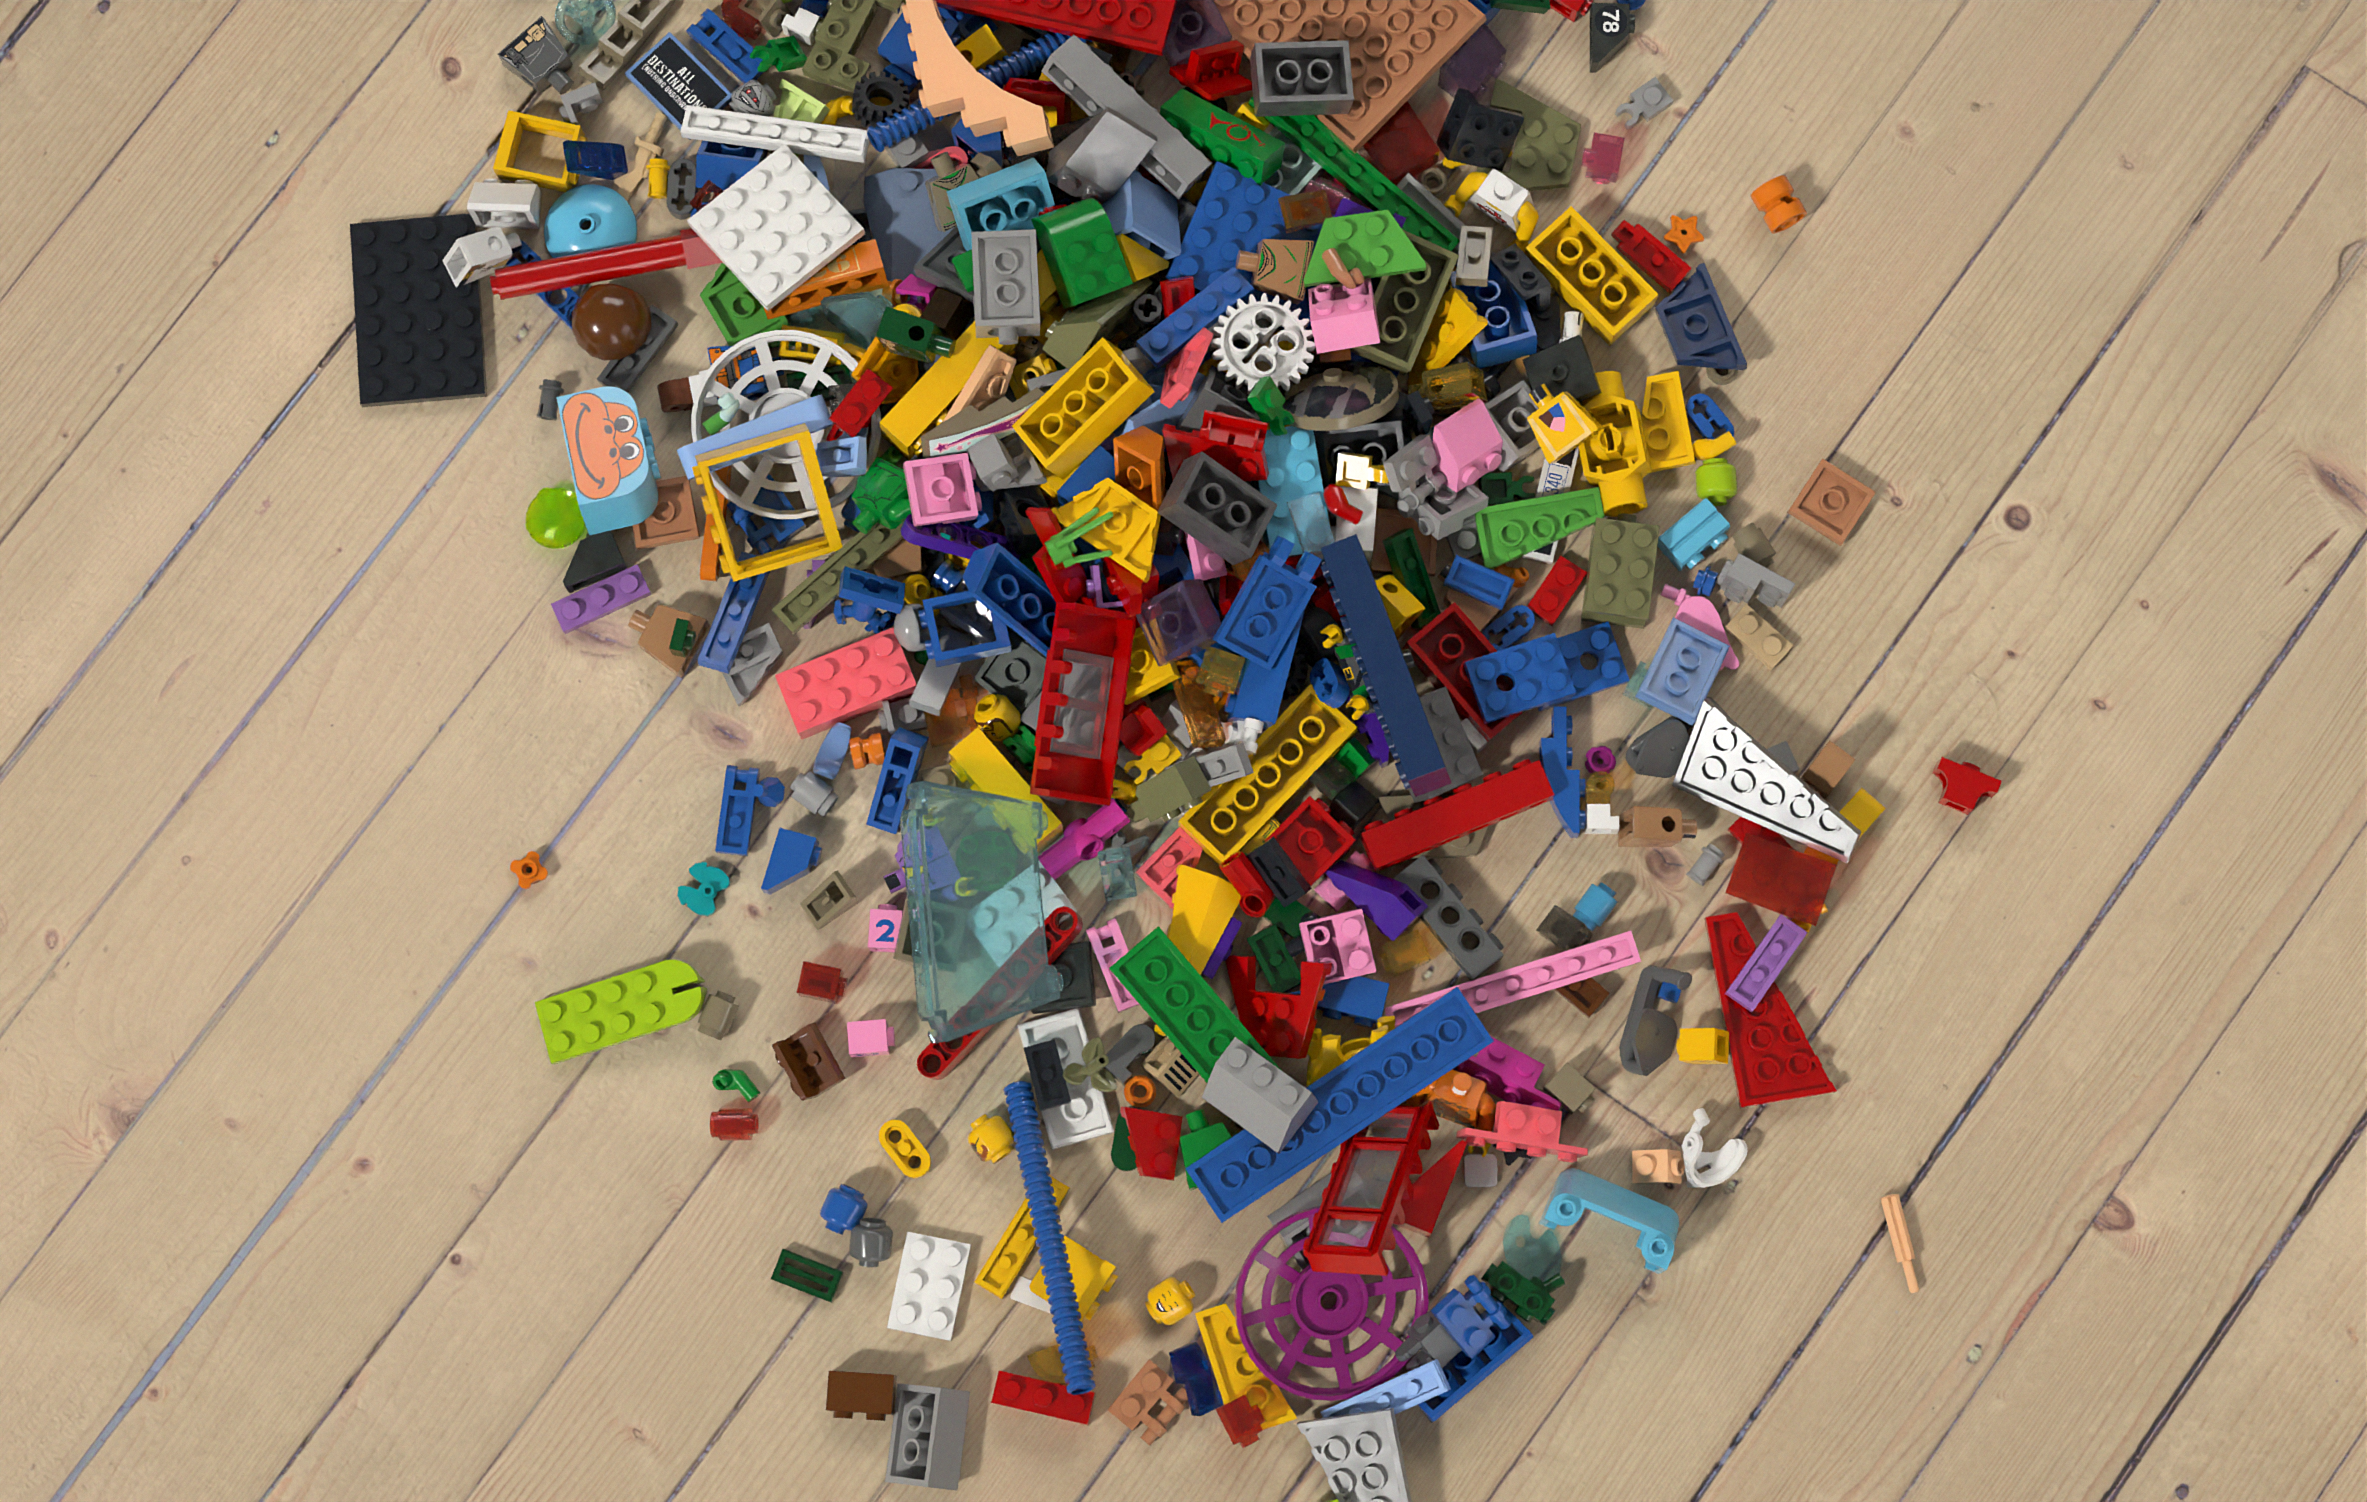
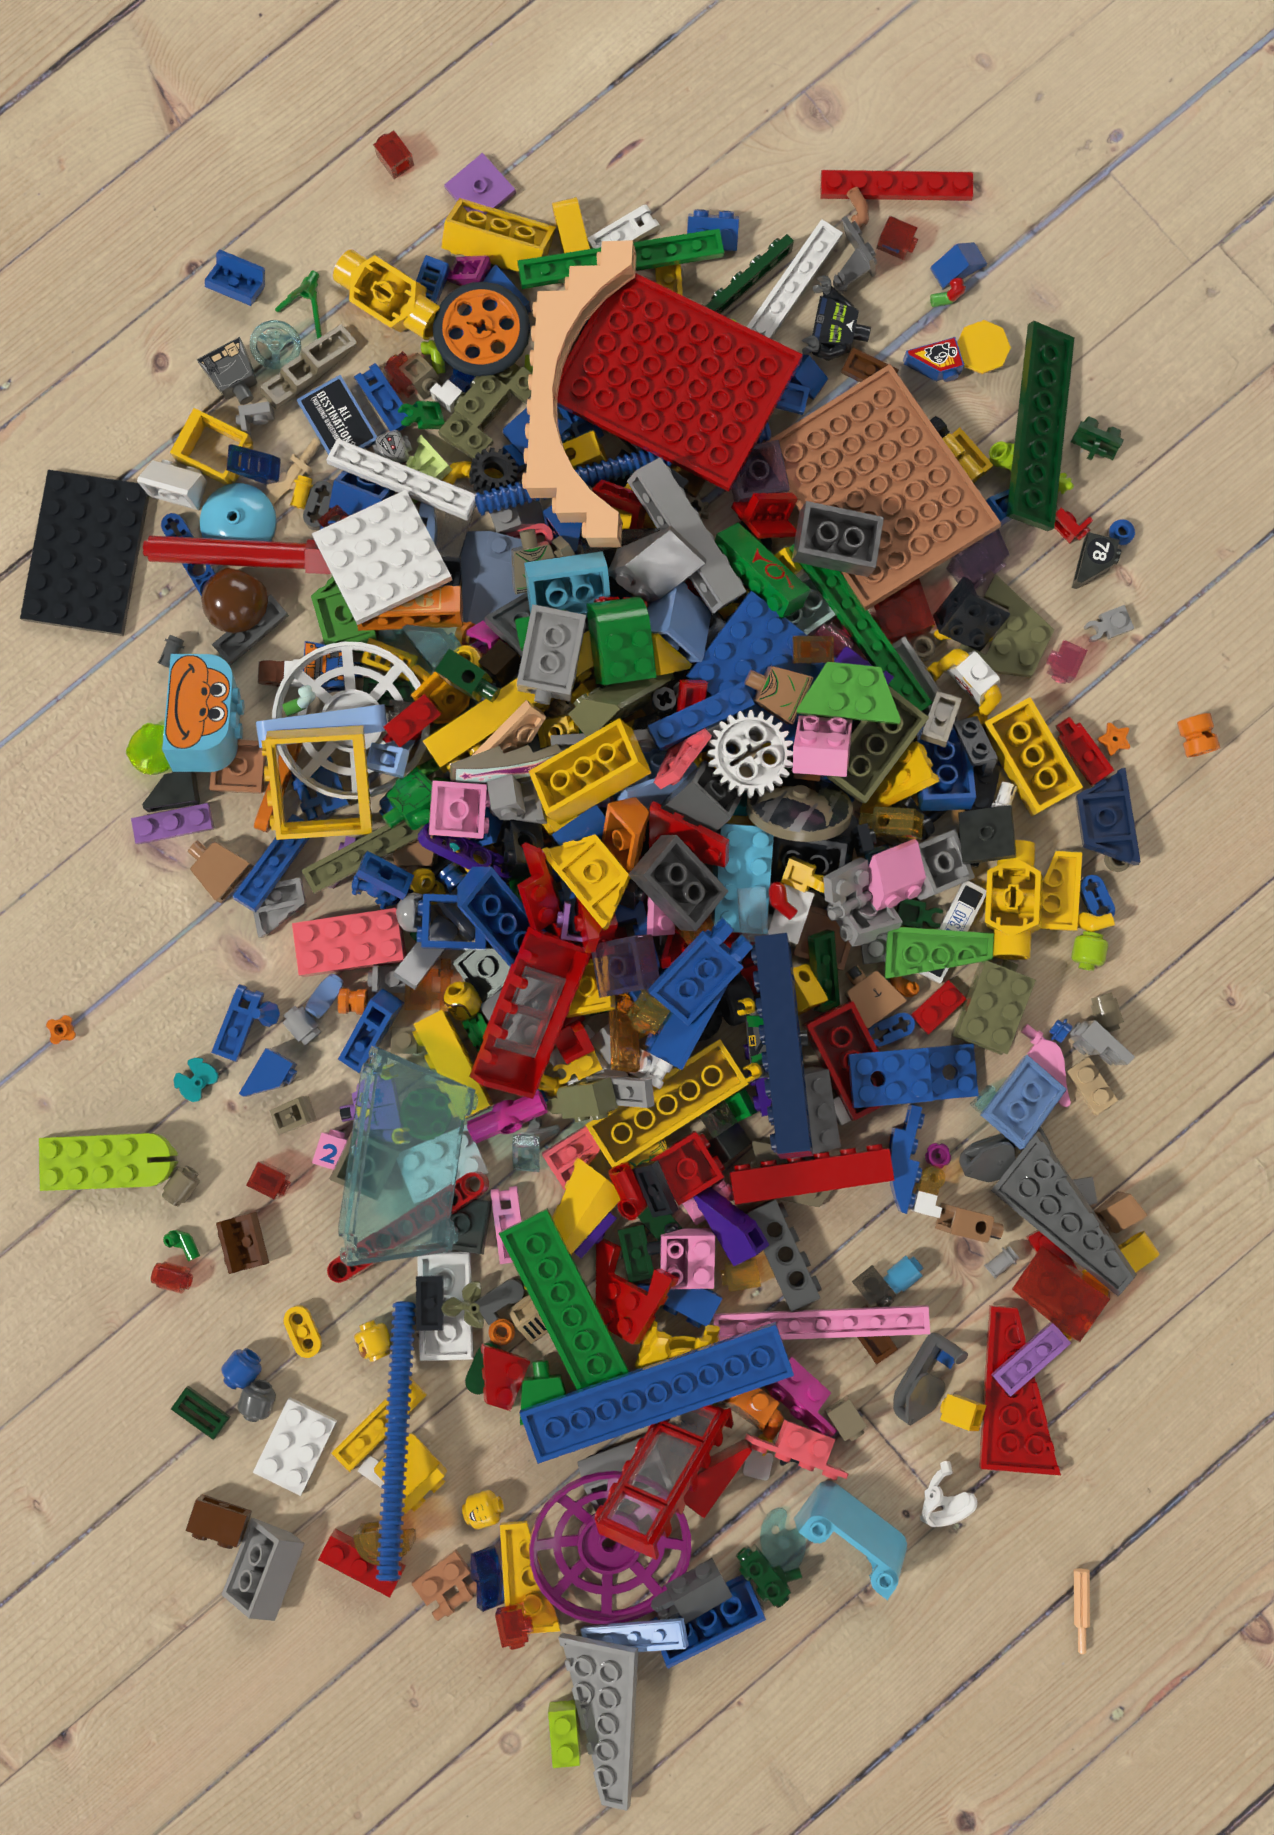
camera: 15 degrees right, 5 degrees up
(480, 254) = (142, 520): white torso -> none
(682, 638) = (224, 875): dark green plate -> none
(870, 1038) = (296, 1235): bright pink brick -> none
(1062, 545) = (542, 883): bright green plant -> none
(1219, 427) = (697, 816): red hinge -> none
(1258, 1095) = (592, 1372): light grey slope -> none
(1268, 404) = (741, 805): green plate -> none
(1329, 683) = (735, 1043): blue beam -> none
(1339, 270) = (827, 708): nougat arm -> none
(1464, 1324) = (711, 1594): blue plate -> none
(1479, 582) = (877, 988): blue tile -> none
(1560, 423) = (976, 875): yellow torso -> none
(1657, 1166) = (900, 1499): light nougat bracket -> none
(1693, 535) = (1061, 989): medium azure brick -> none
(1831, 502) = (1179, 990): nougat plate -> none
(1963, 784) = (1227, 1250): red brick -> none

